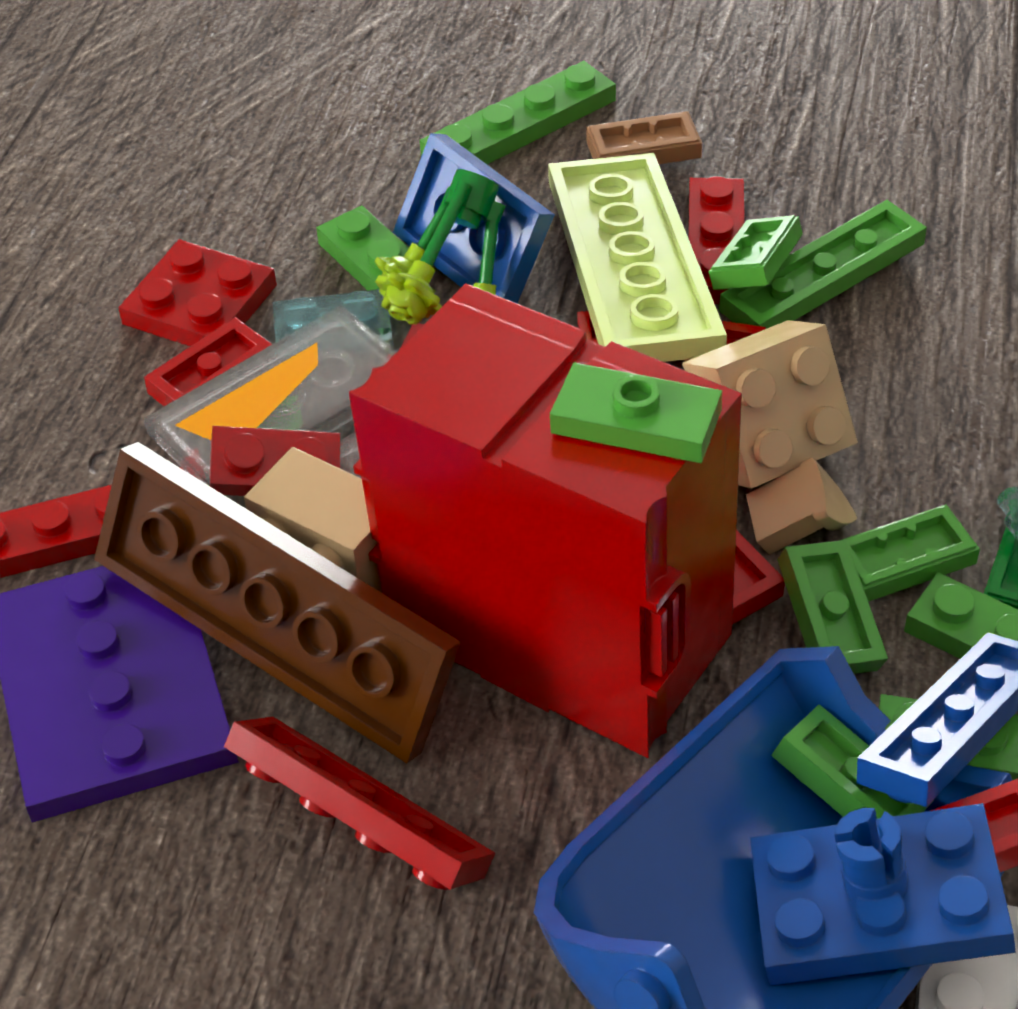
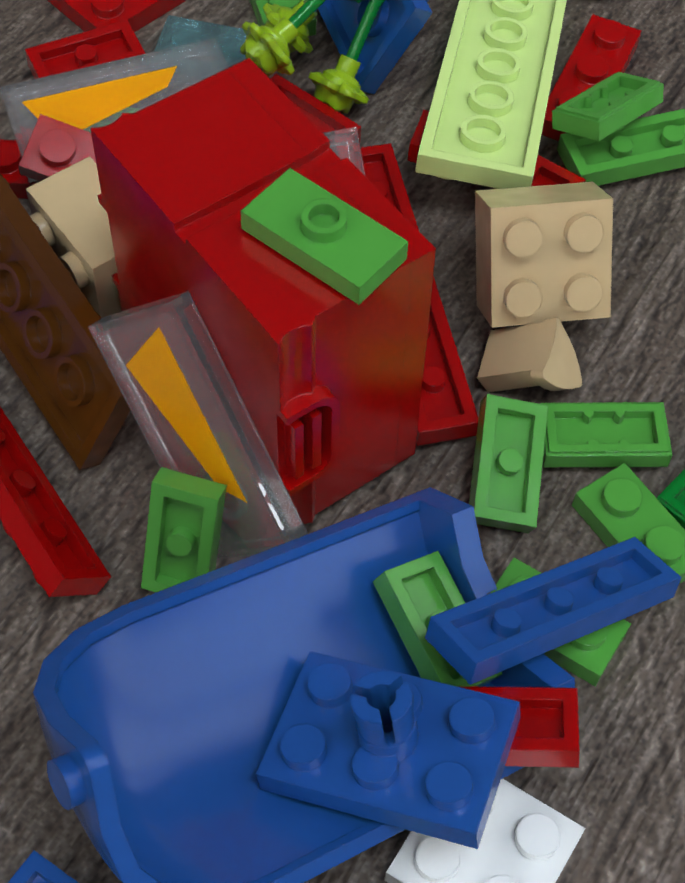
camera: 15 degrees right, 10 degrees up
(541, 663) = (197, 418): none -> clear tile
(559, 776) = (181, 529): none -> bright green plate

